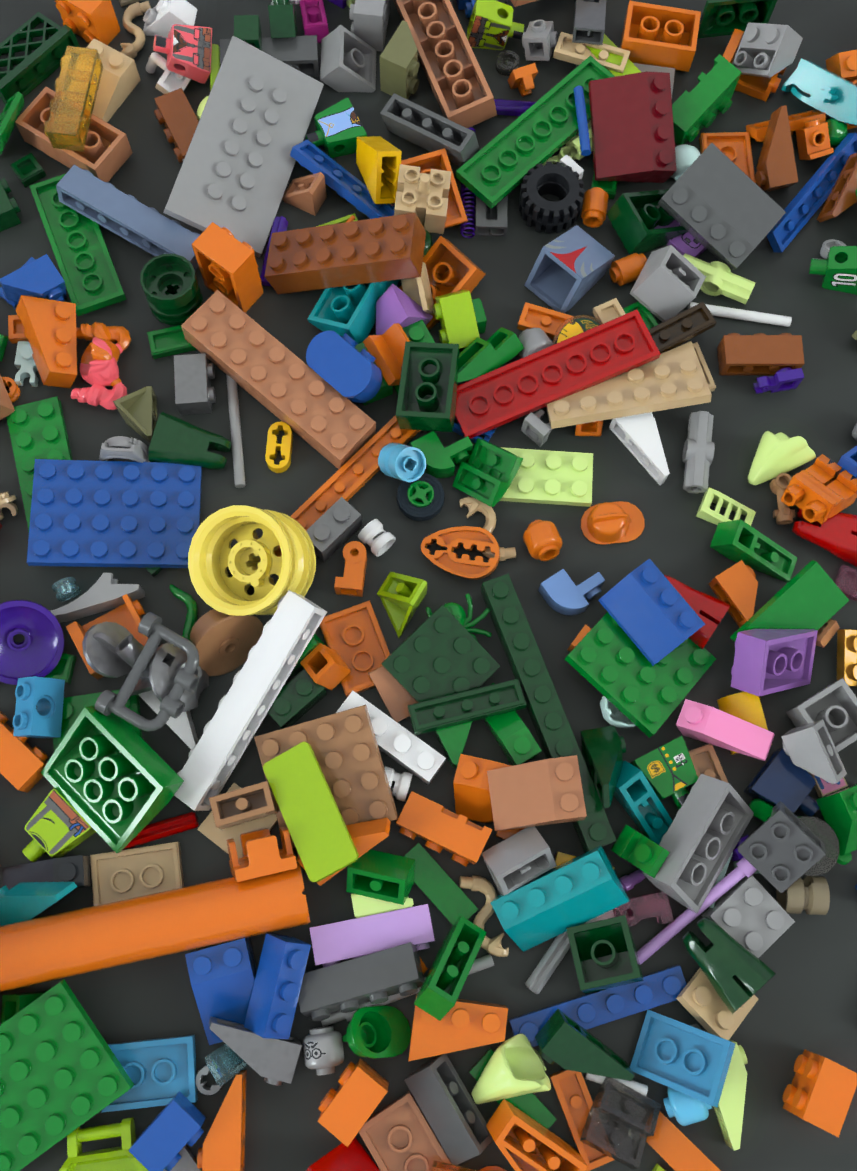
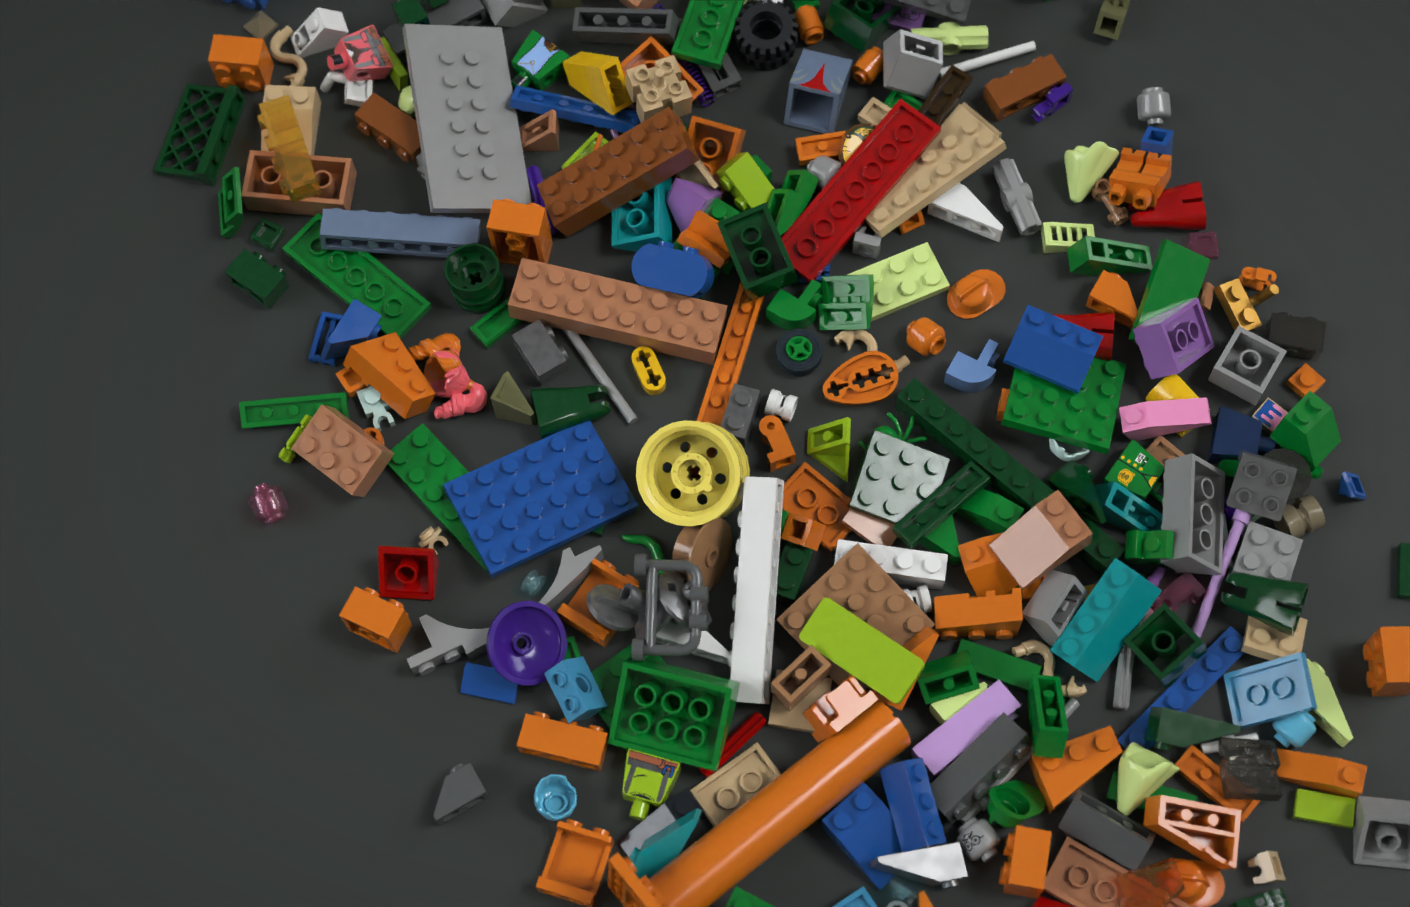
camera: 20 degrees left, 5 degrees down
(132, 449) = (526, 434): light grey helmet -> none
(402, 462) = (768, 328): medium azure wheel -> none
(814, 751) = (1246, 395): light grey slope -> none

